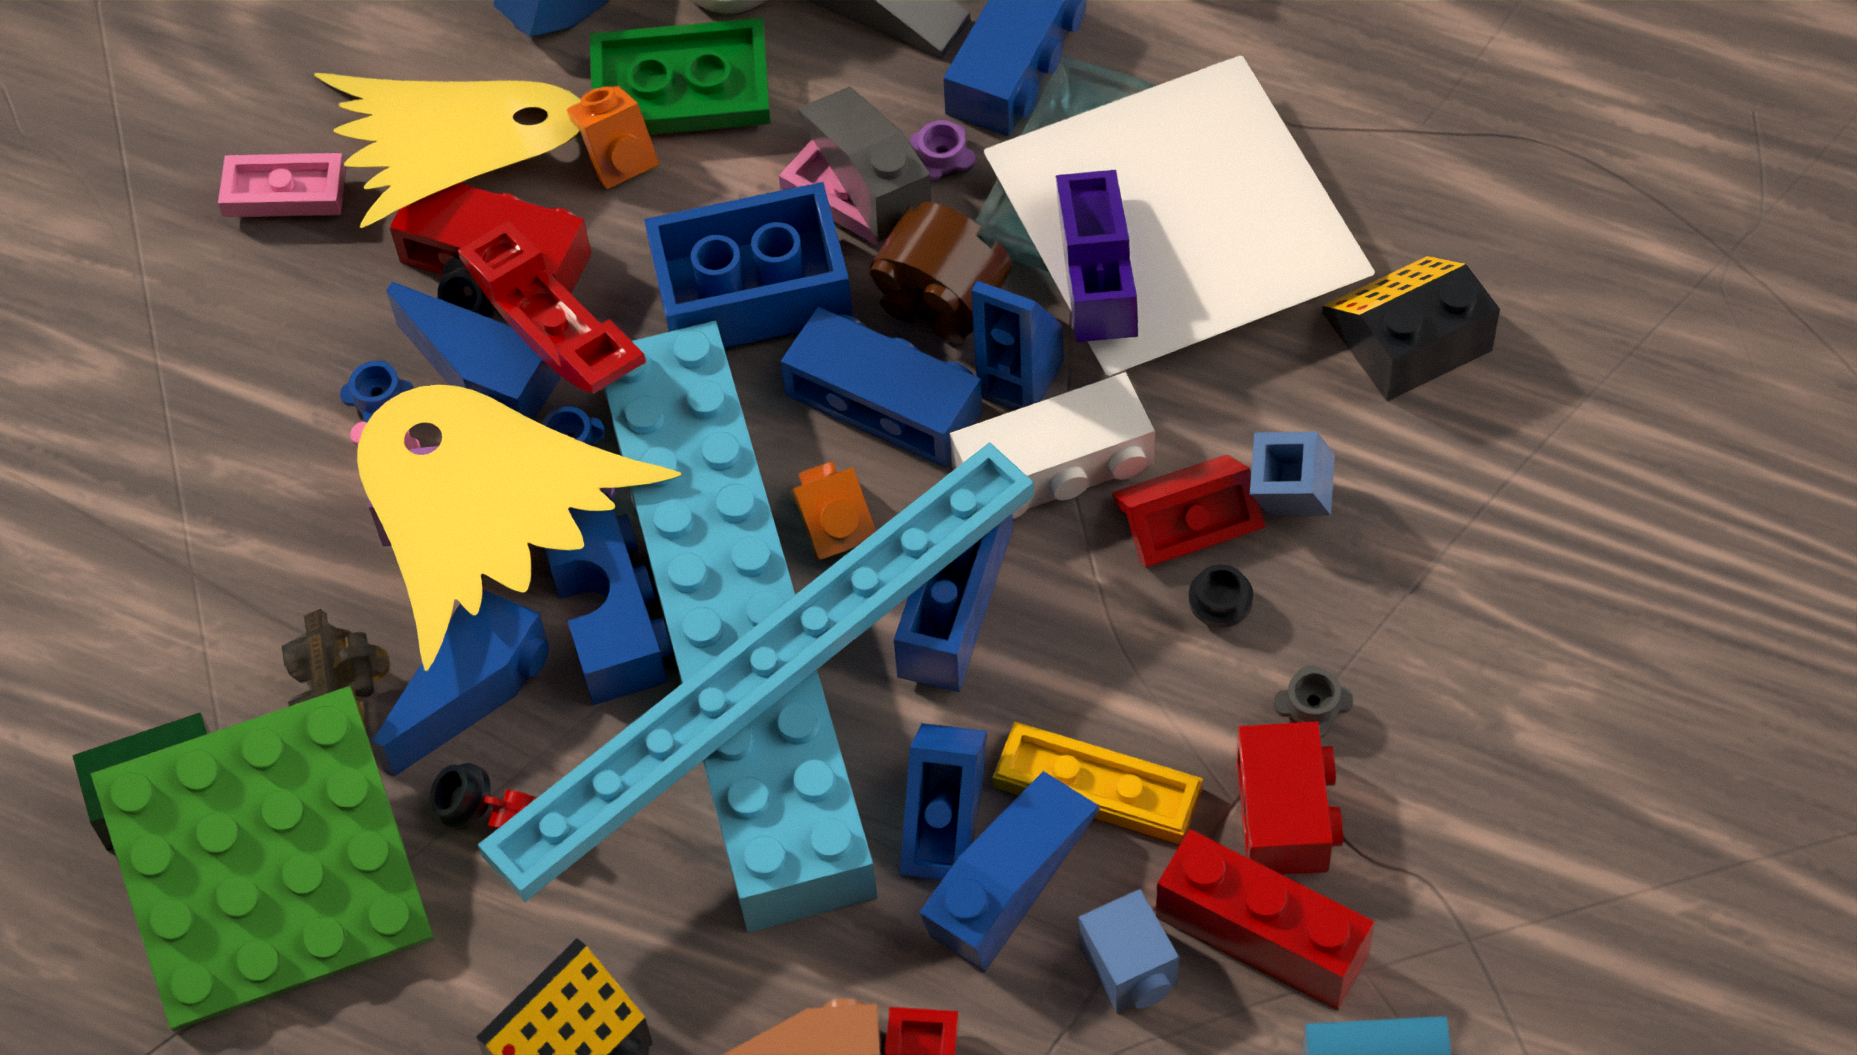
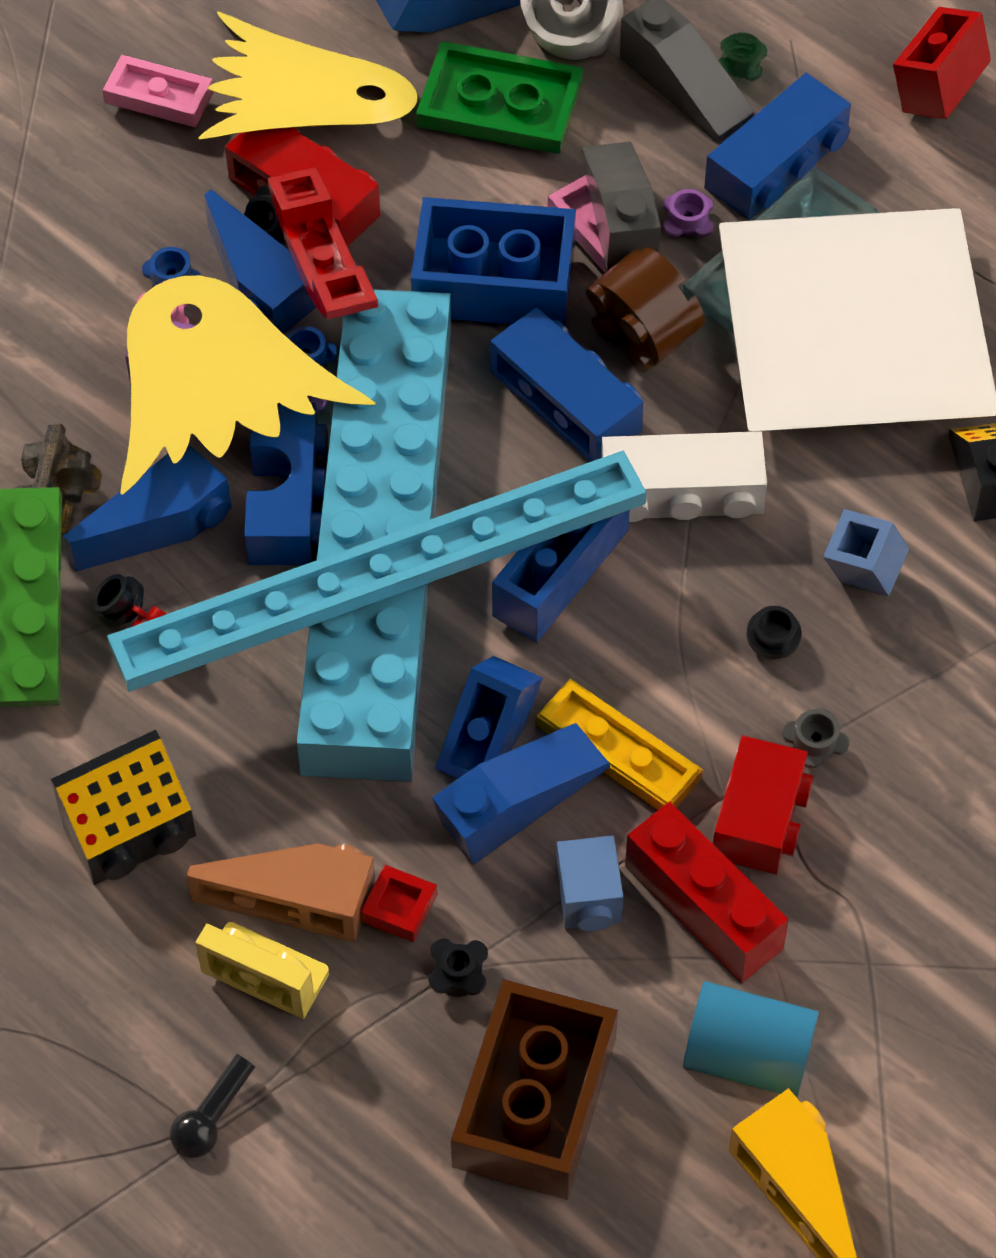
camera: 15 degrees right, 0 degrees up
(614, 134) = (429, 126): orange bracket -> none
(832, 509) = (488, 466): orange bracket -> none
(1014, 347) = (680, 384): blue slope -> none
(1097, 256) = (774, 333): dark purple slope -> none
(1190, 509) = (775, 557): red panel -> none

